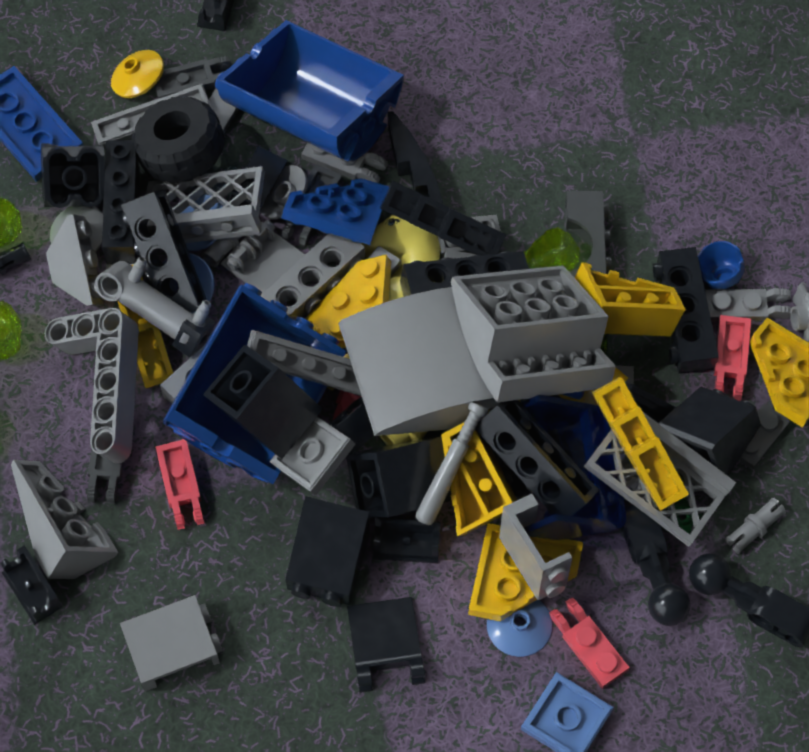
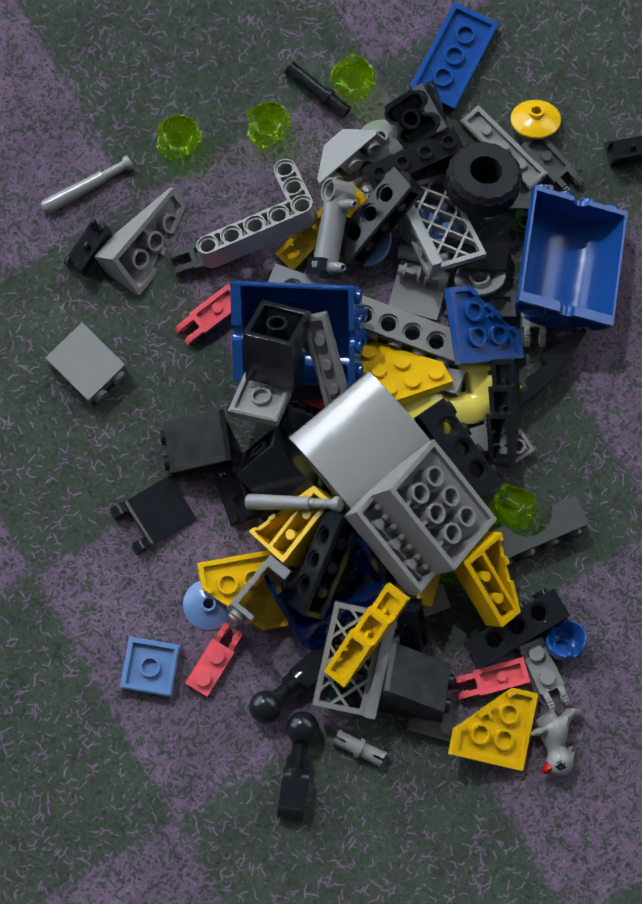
camera: 65 degrees right, 15 degrees up
(245, 136) = (517, 225): none -> dark green plate

